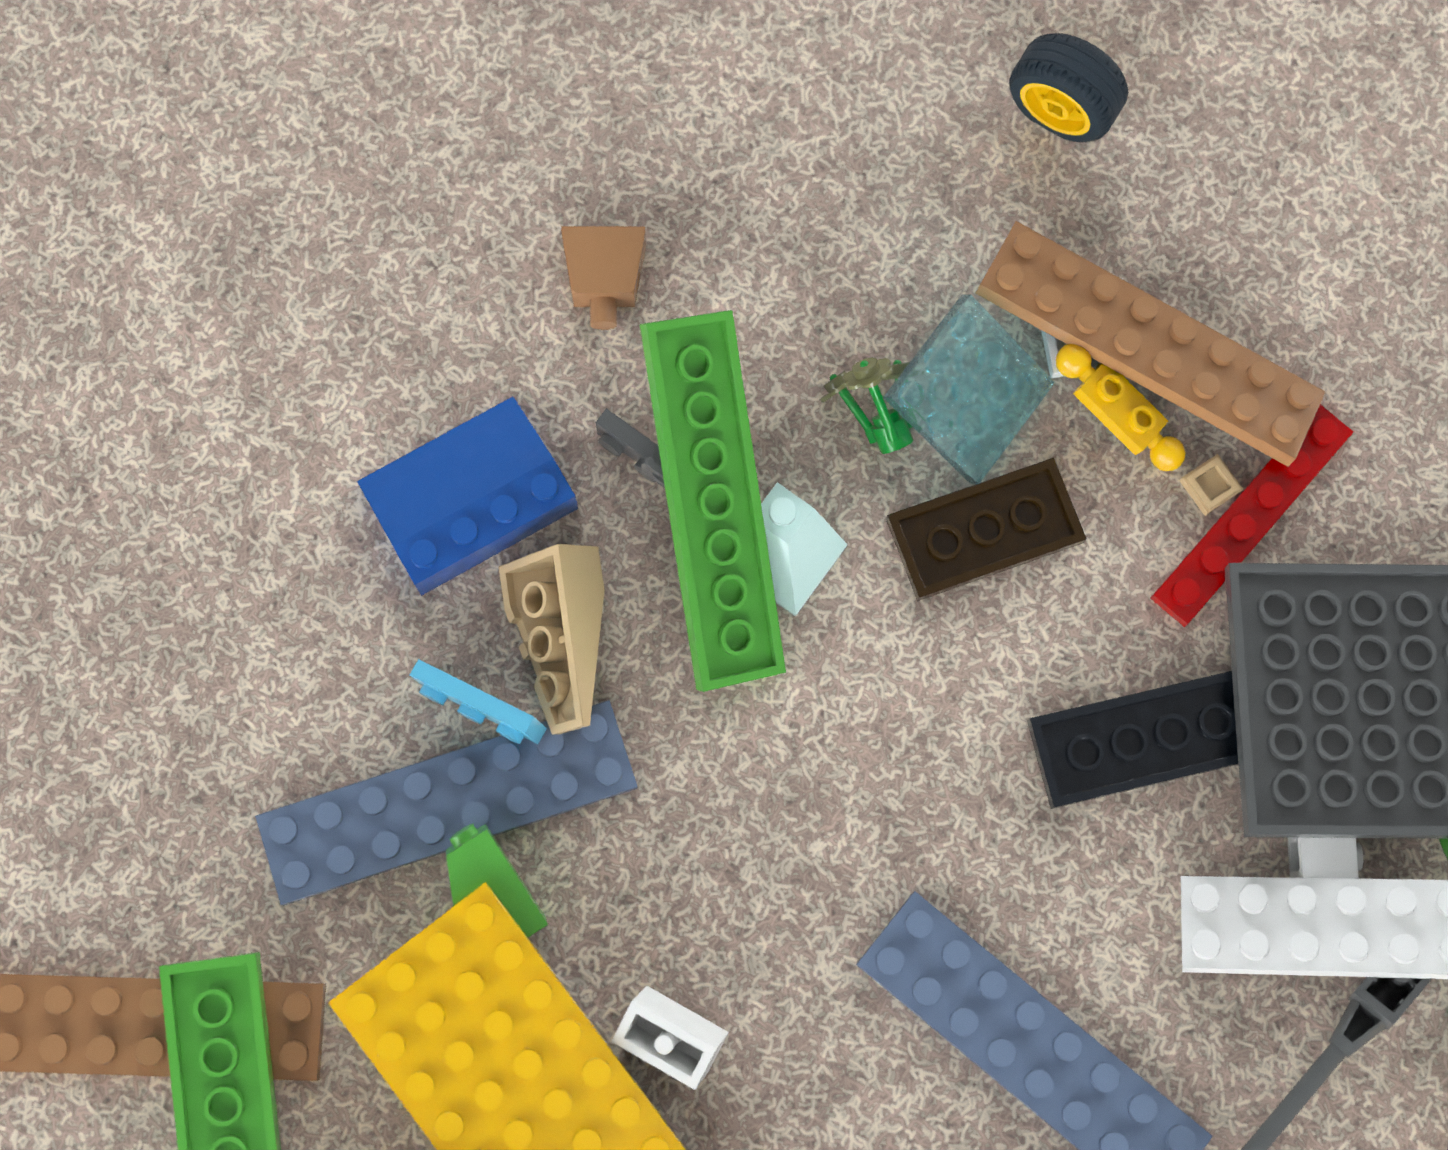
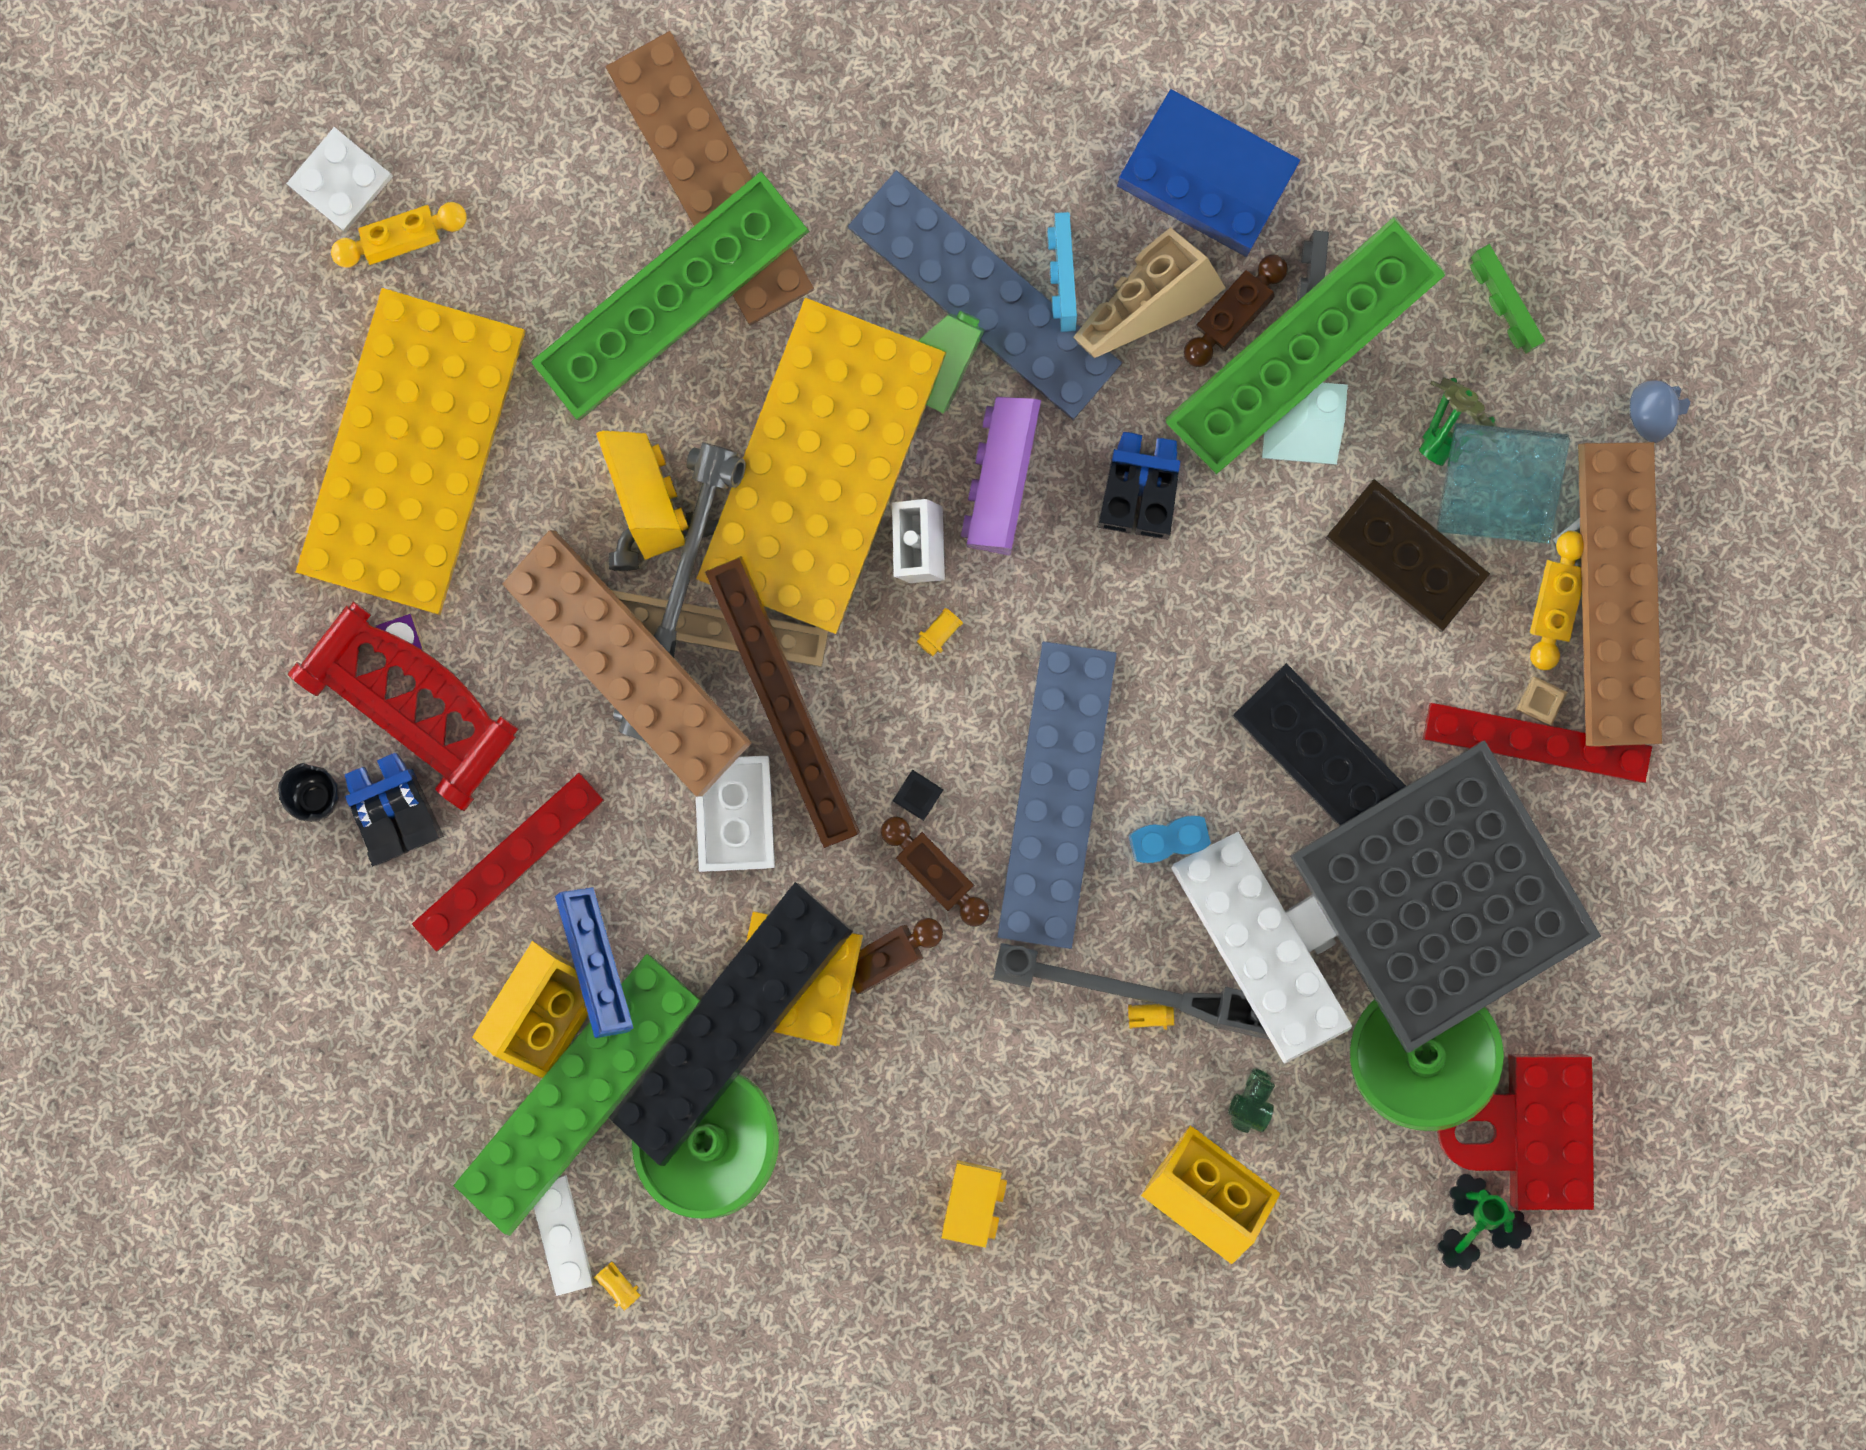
camera: 70 degrees right, 10 degrees up
(604, 269) = (1435, 166): medium nougat torso -> none
(627, 552) = (1235, 310): none -> reddish brown plate
(653, 898) = (1002, 474): none -> medium lavender slope
(746, 746) = (1144, 476): none -> black hips
(781, 1073) = (939, 632): none -> yellow pin
(782, 280) = (1506, 299): none -> bright green plate
(980, 202) = (1656, 409): none -> sand blue piece
(1068, 87) = (1785, 422): black wheel -> none
(1149, 968) = (1179, 836): none -> dark azure brick
(1332, 1093) = (1150, 1016): none -> yellow pin

